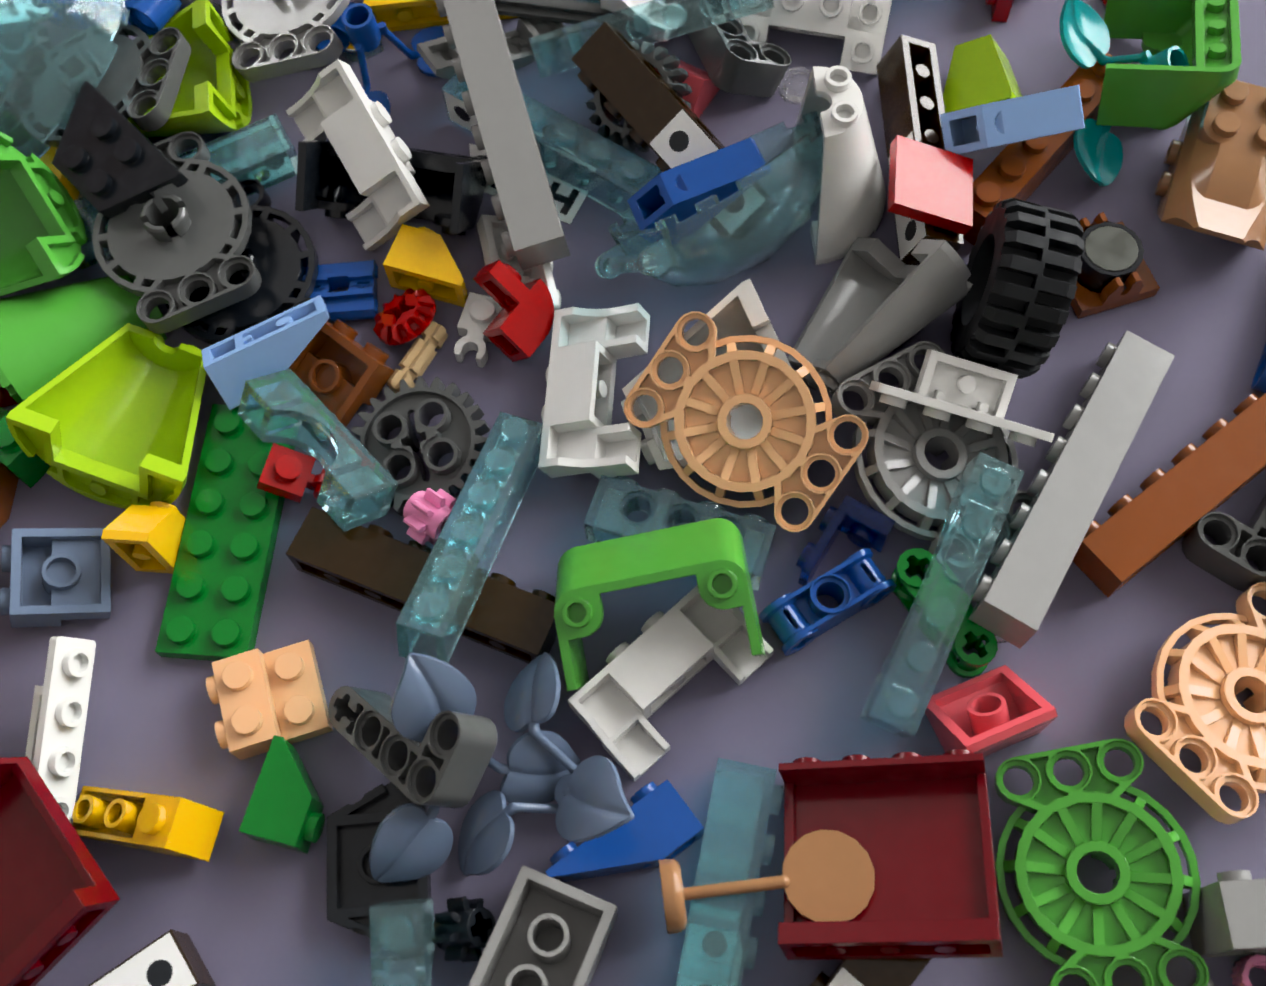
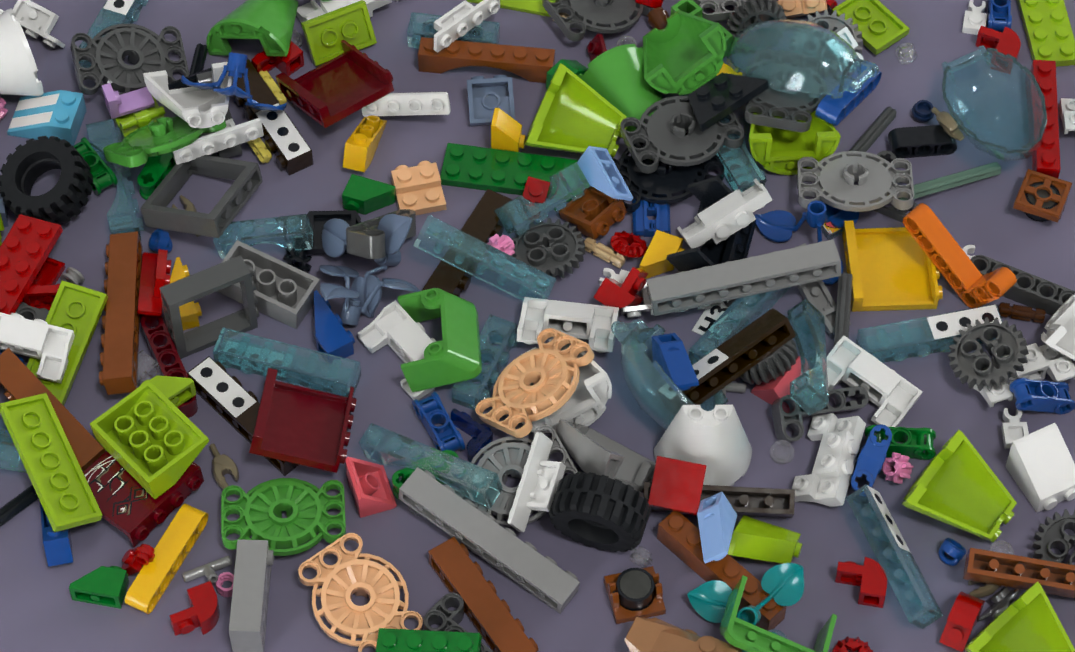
camera: 90 degrees right, 10 degrees down
(822, 876) = (297, 397): medium nougat piece -> none

